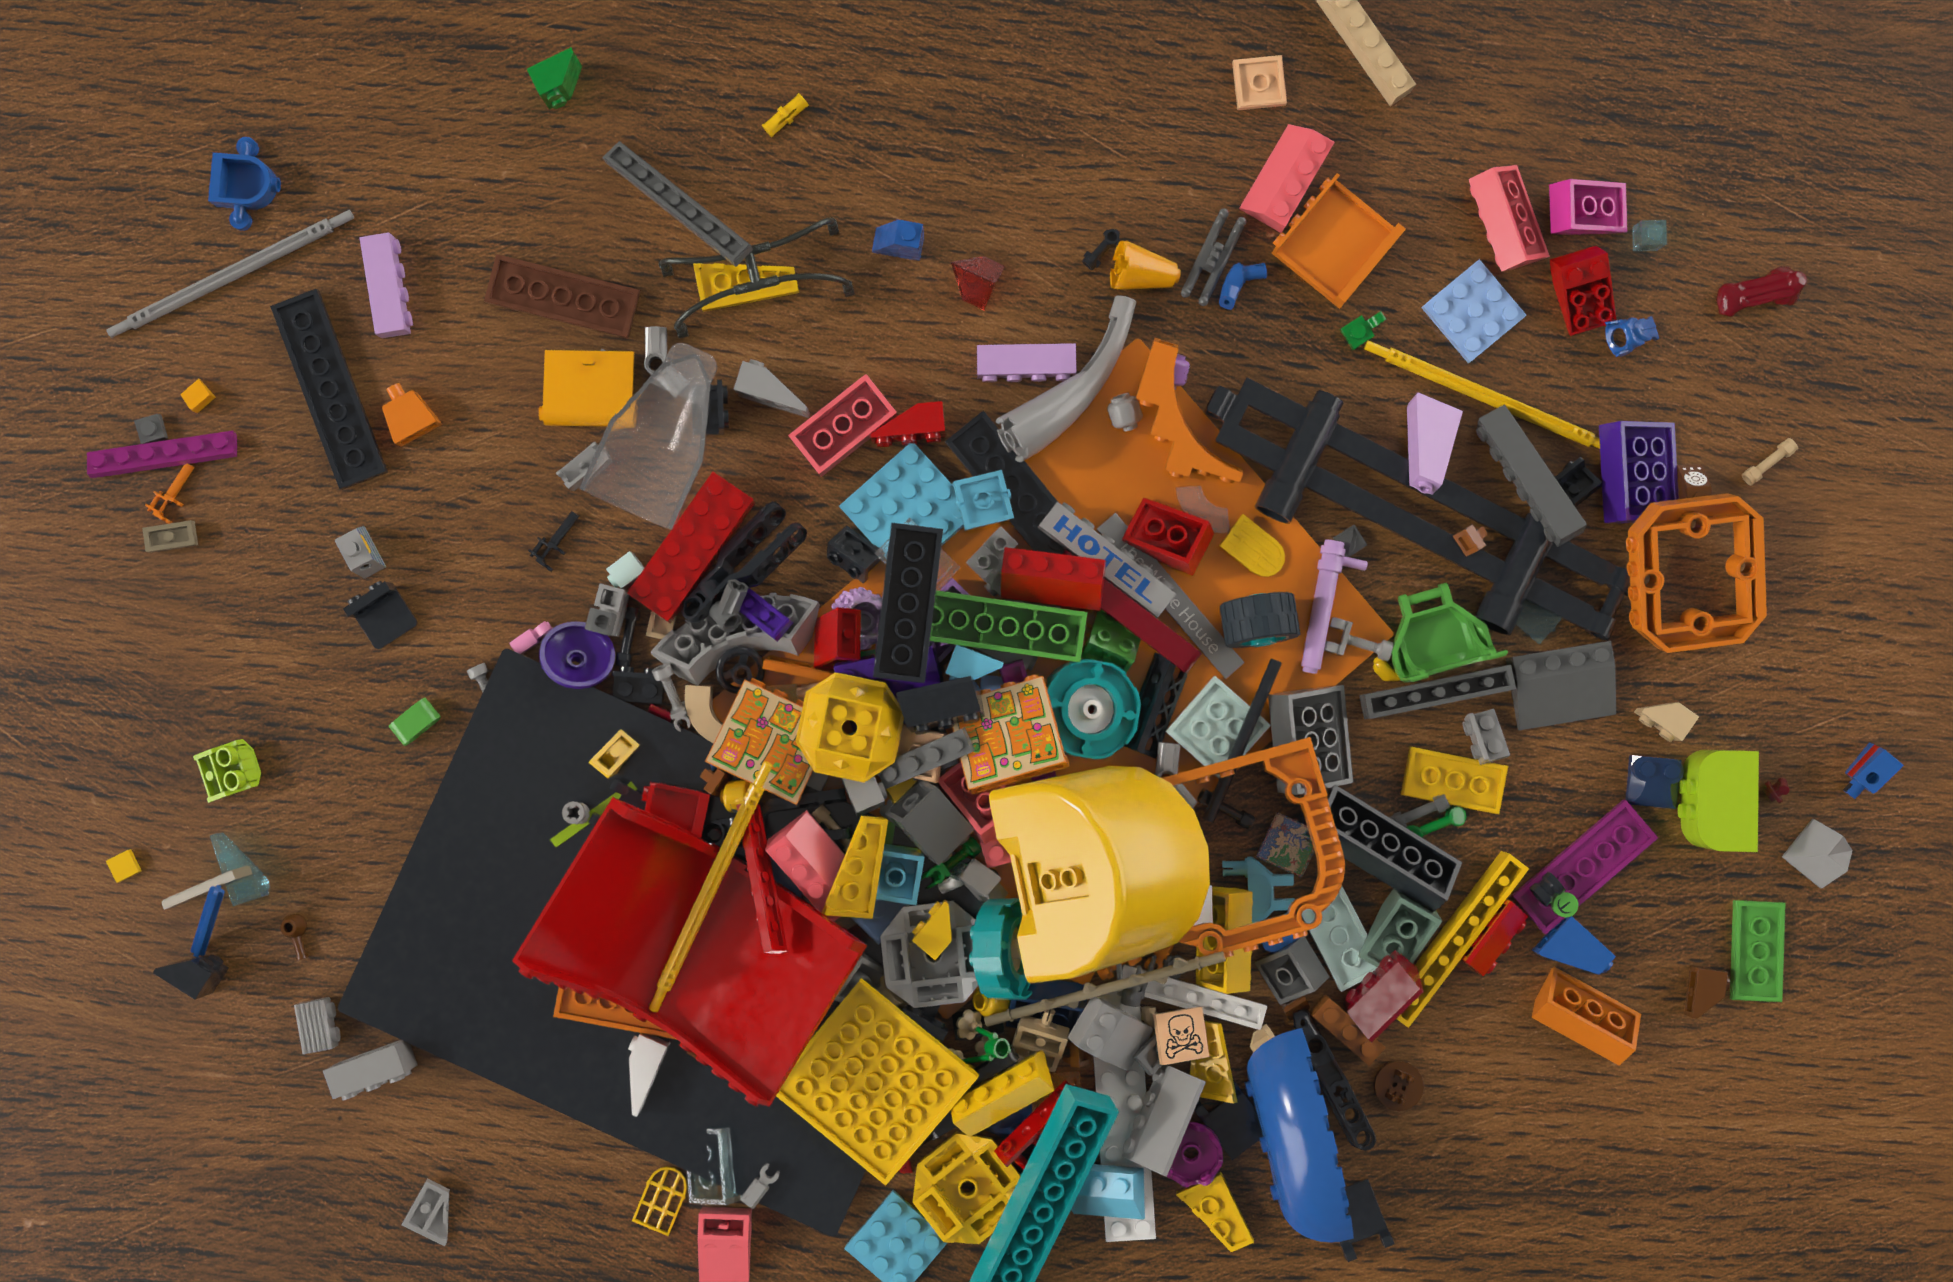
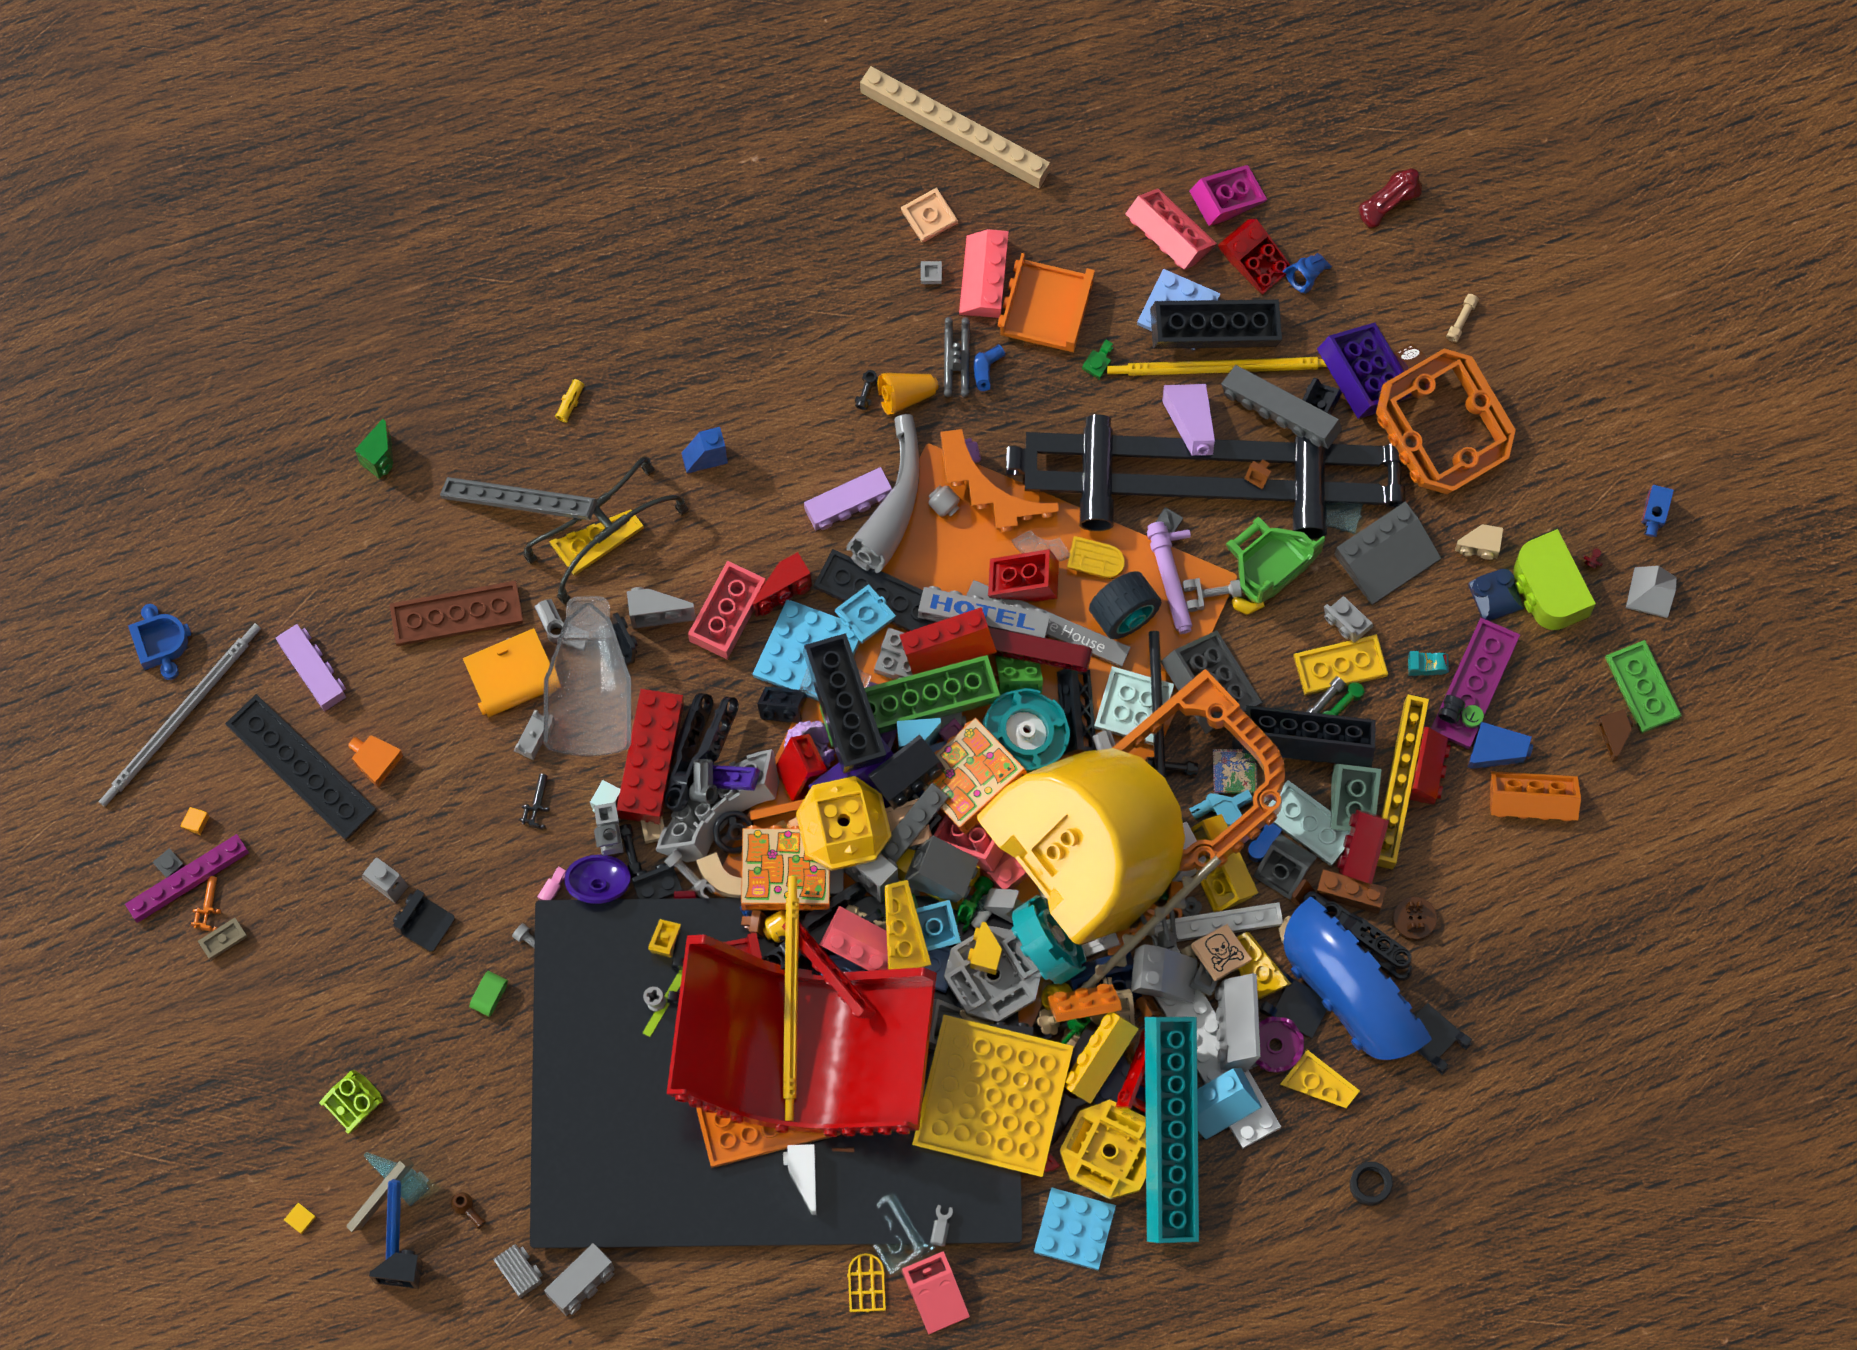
camera: 20 degrees left, 15 degrees down
(977, 279) = (780, 456): clear red slope -> none
(1011, 1035) = (1084, 1002): none -> orange plate
(1231, 149) = (931, 272): none -> light grey plate
(1437, 692) = (1291, 601): dark grey brick -> none
(1506, 350) = (1215, 324): none -> black brick
(1545, 822) = (1427, 663): none -> teal leg
(1649, 235) = (1284, 194): clear light blue brick -> none

